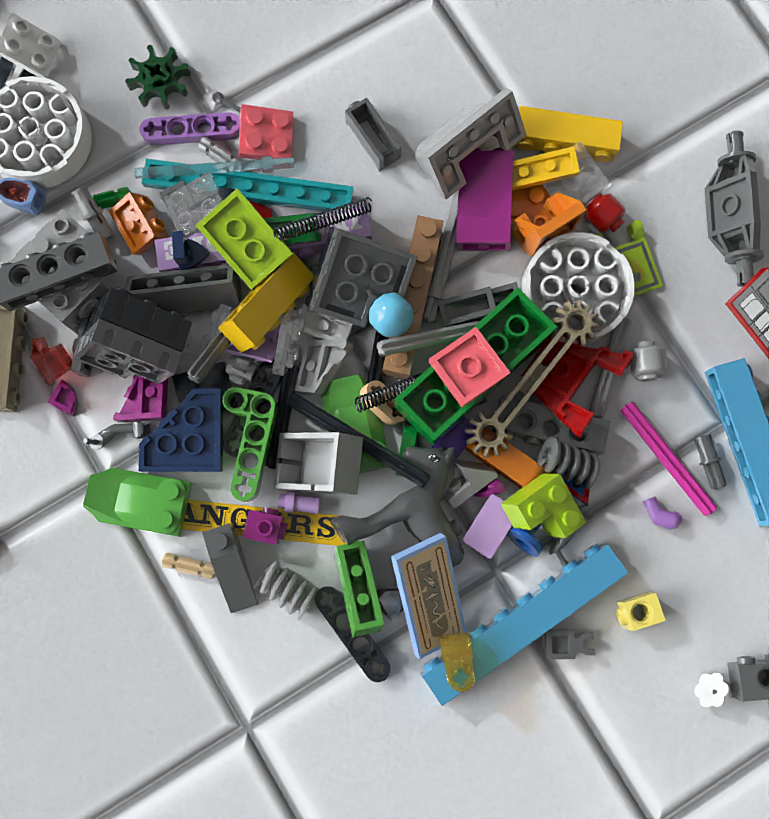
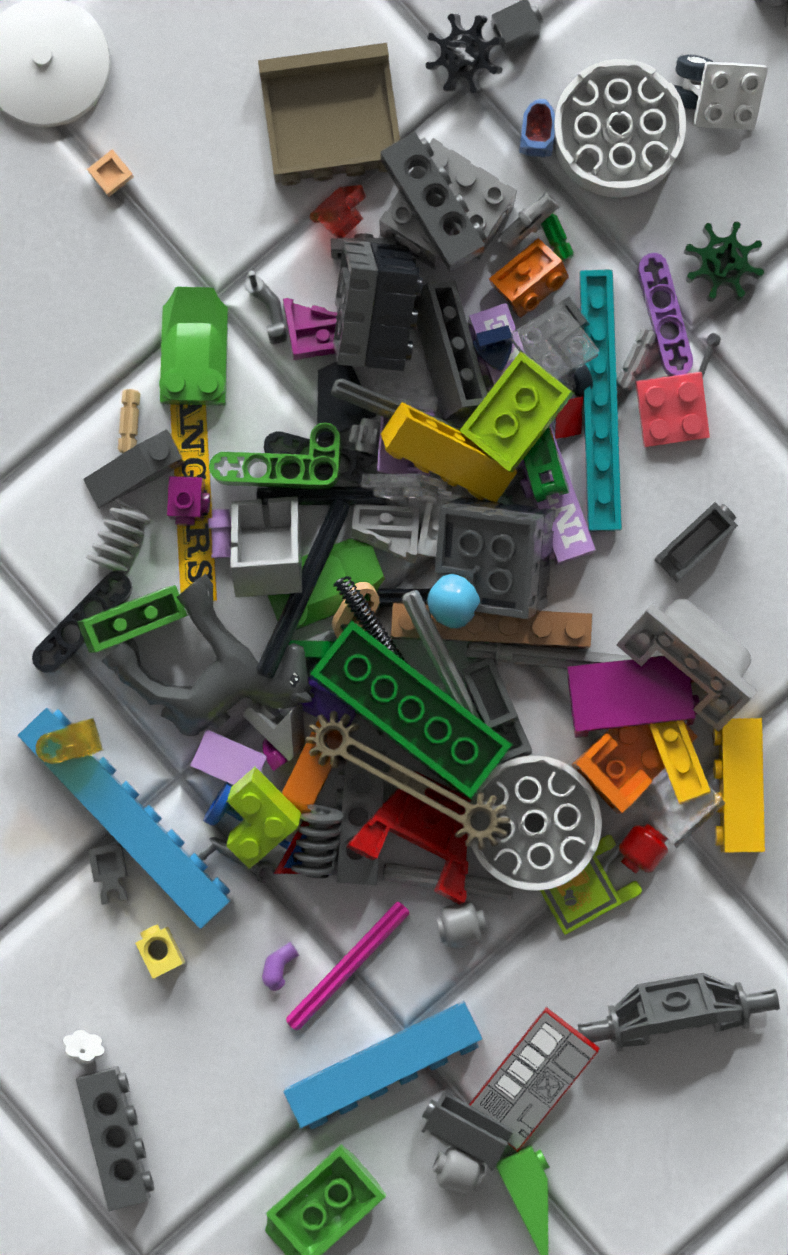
camera: 85 degrees right, 5 degrees up
(64, 398) = (300, 236): magenta tile -> none
(187, 437) = (276, 390): dark blue plate -> none
(266, 164) = (628, 418): clear light blue bar -> none
(314, 218) = (556, 502): black piece -> none
(428, 593) = (138, 699): tile -> none
(469, 367) = (400, 699): coral plate -> none
(710, 461) = (351, 1017): dark grey axle -> none

